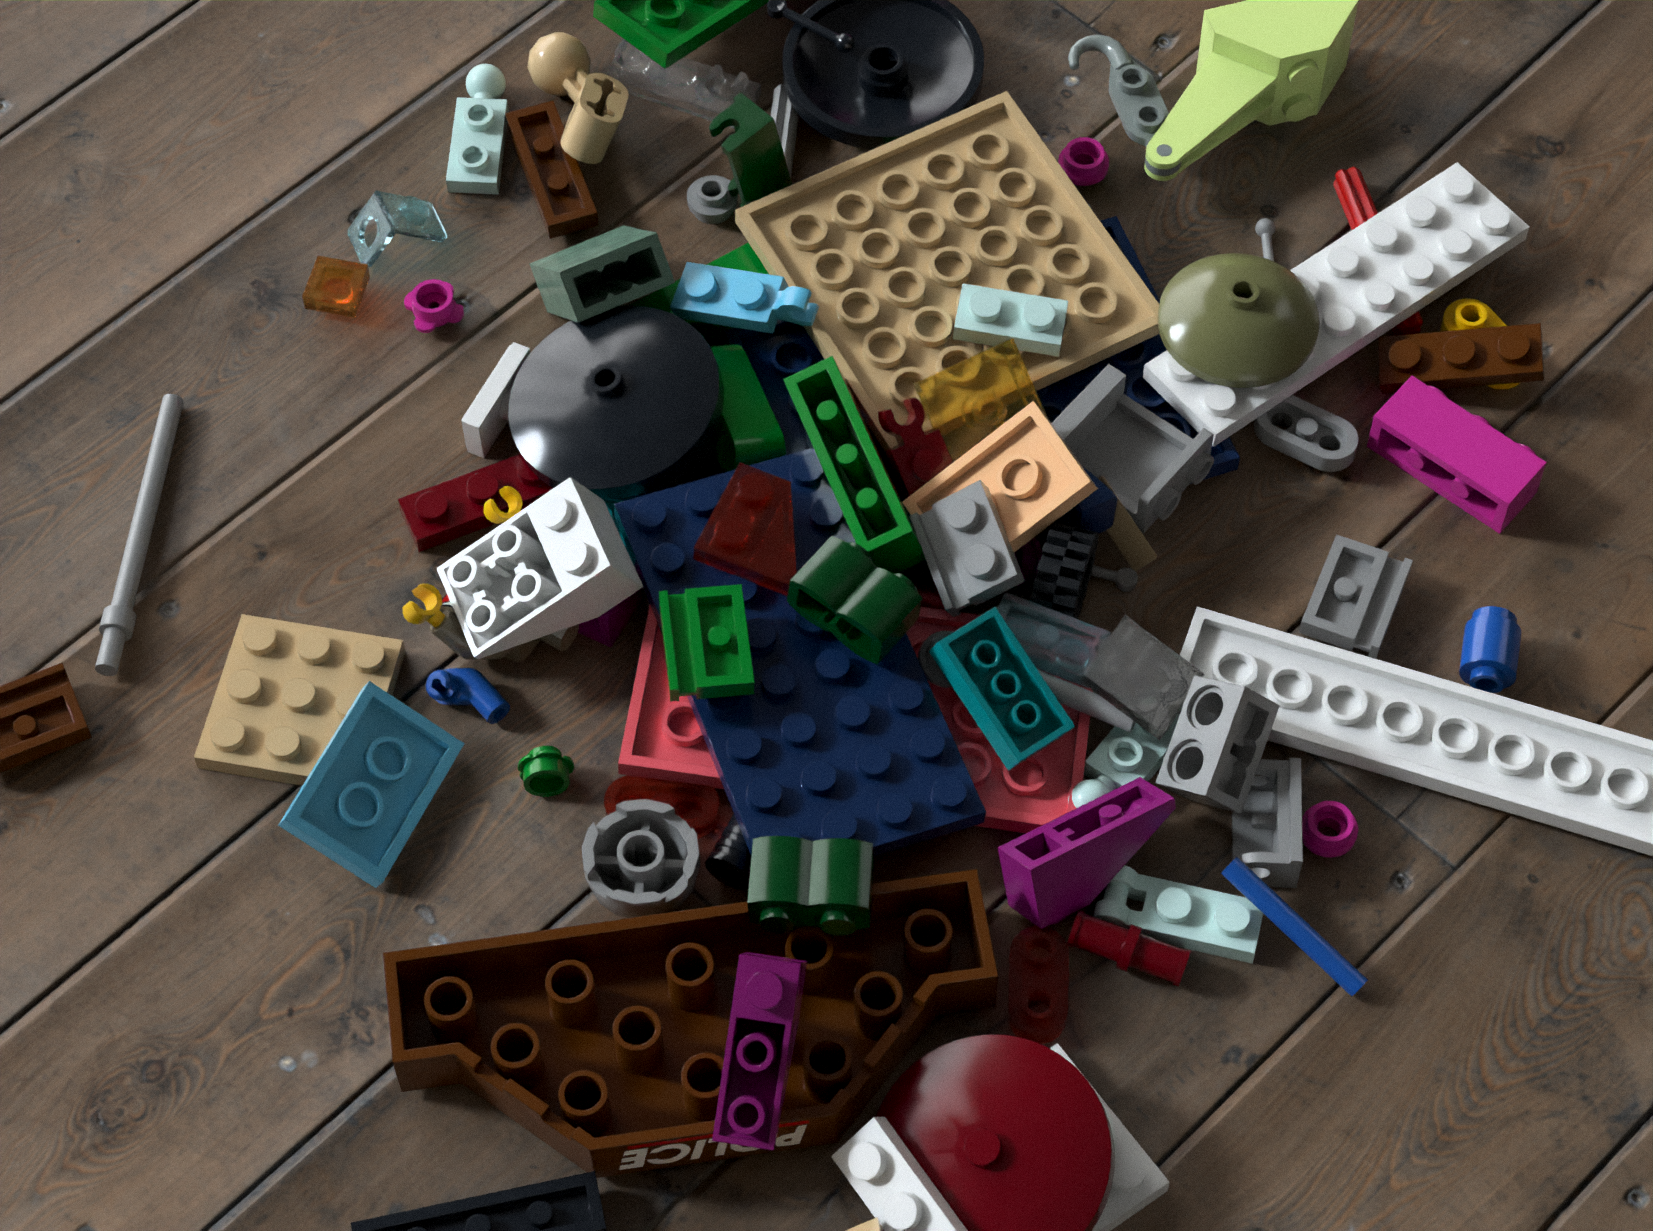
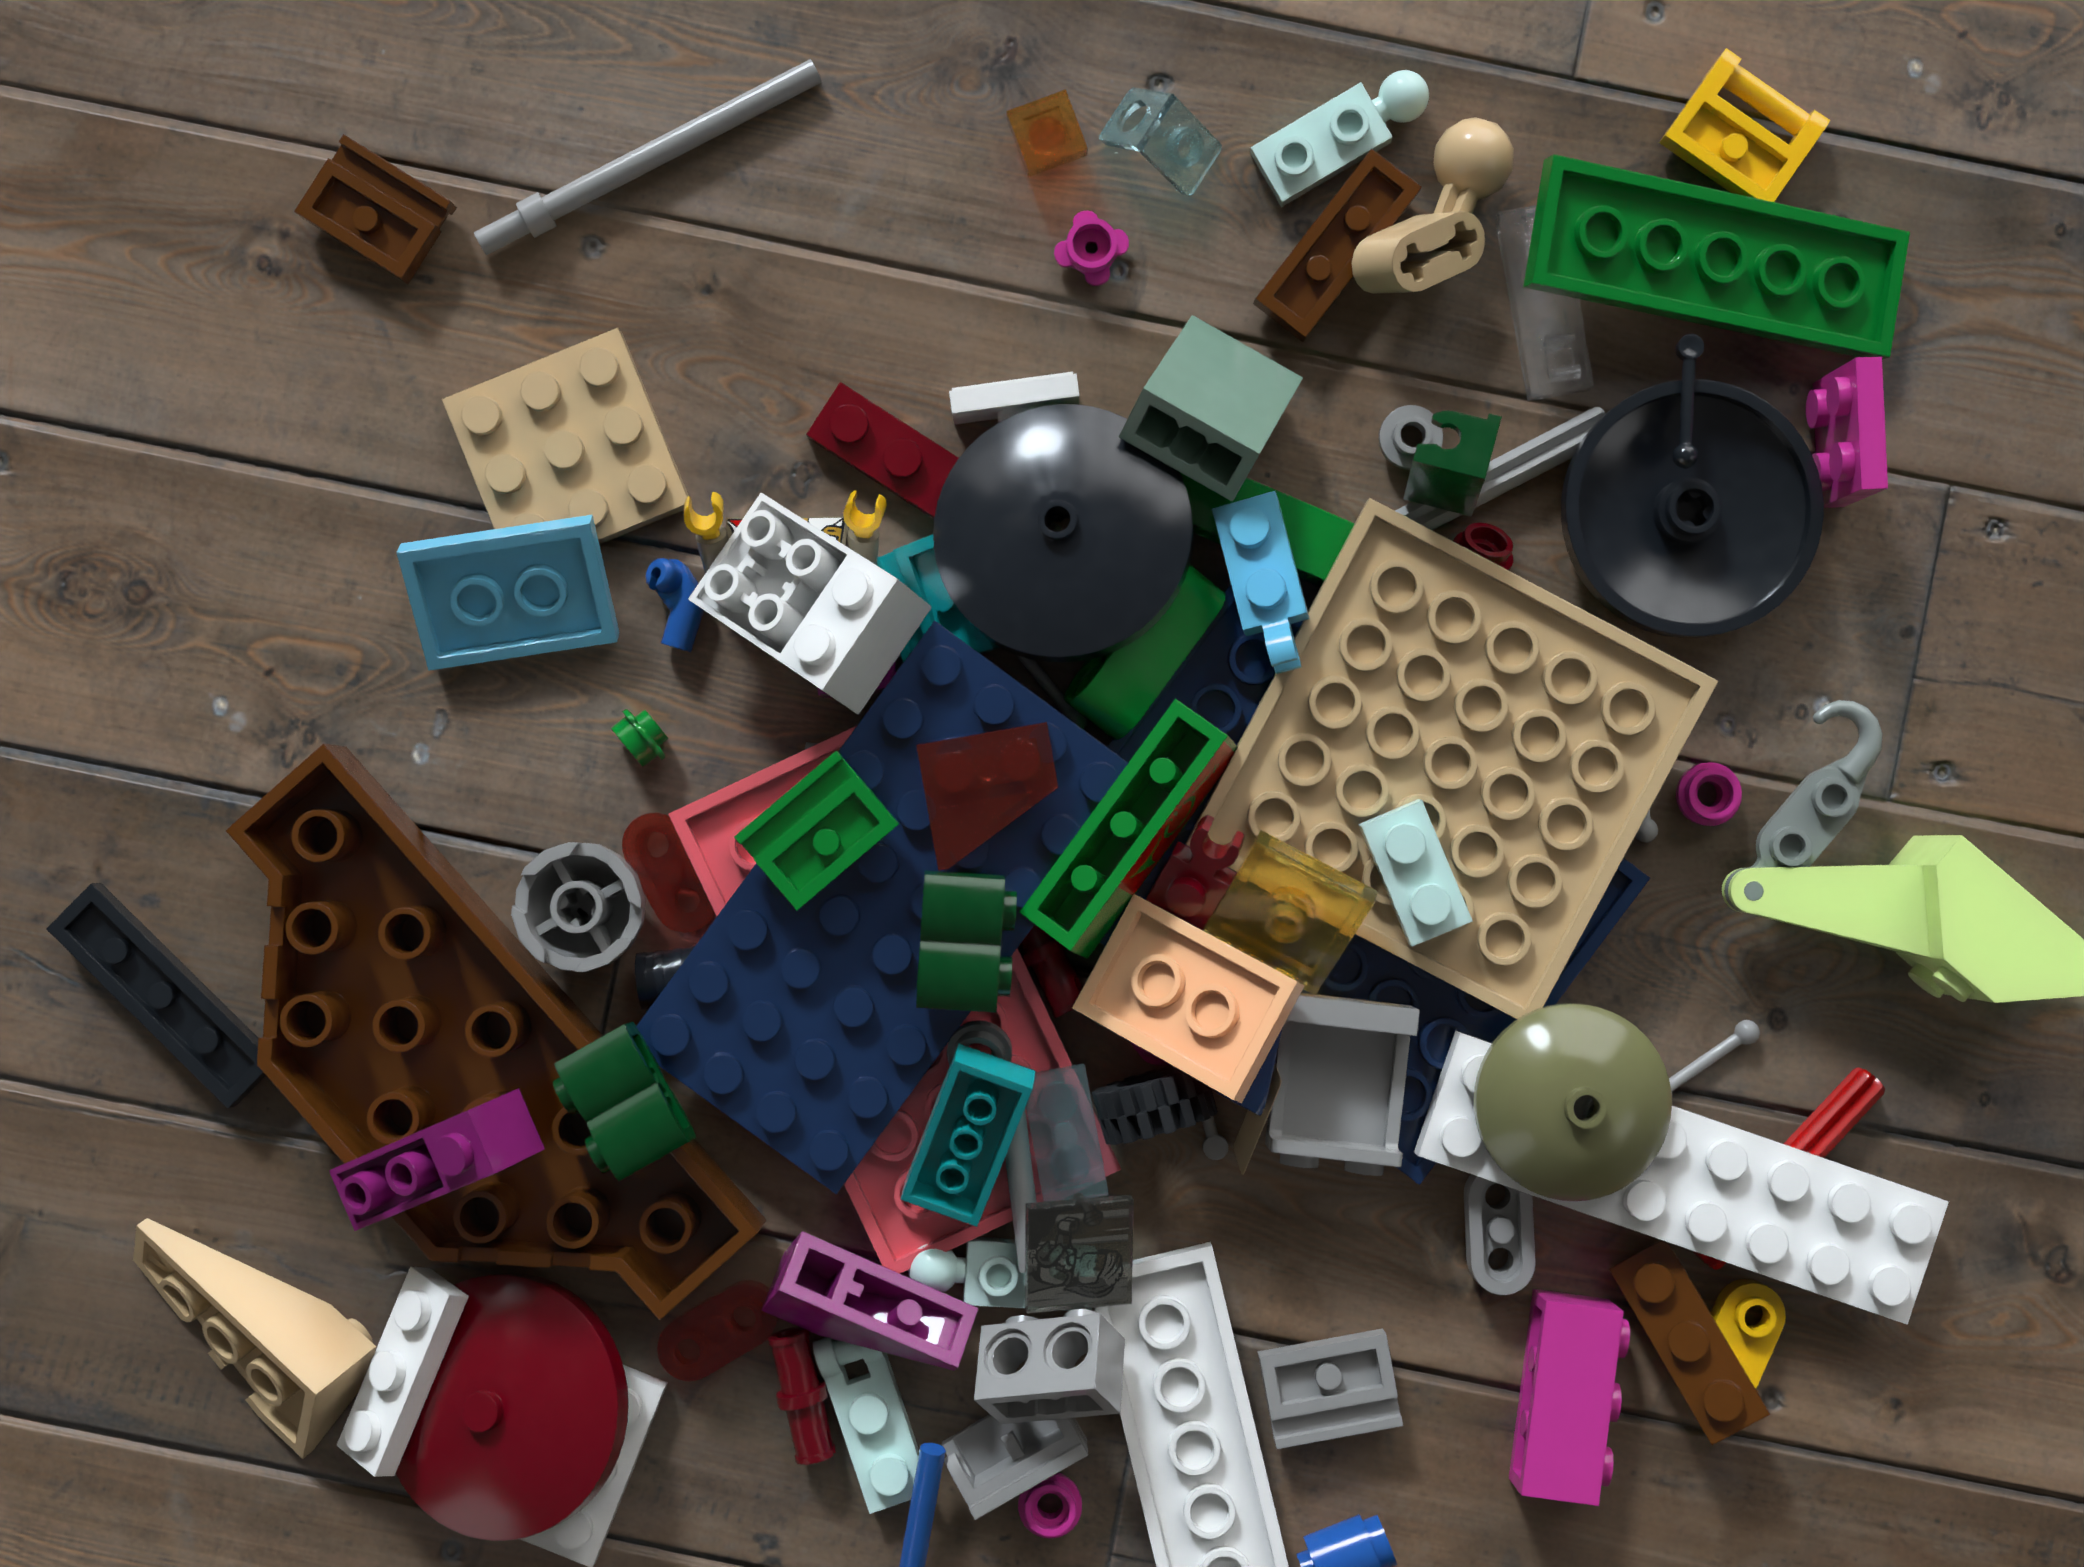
camera: 55 degrees right, 30 degrees up
(967, 548) = (1106, 1002): light grey plate -> none

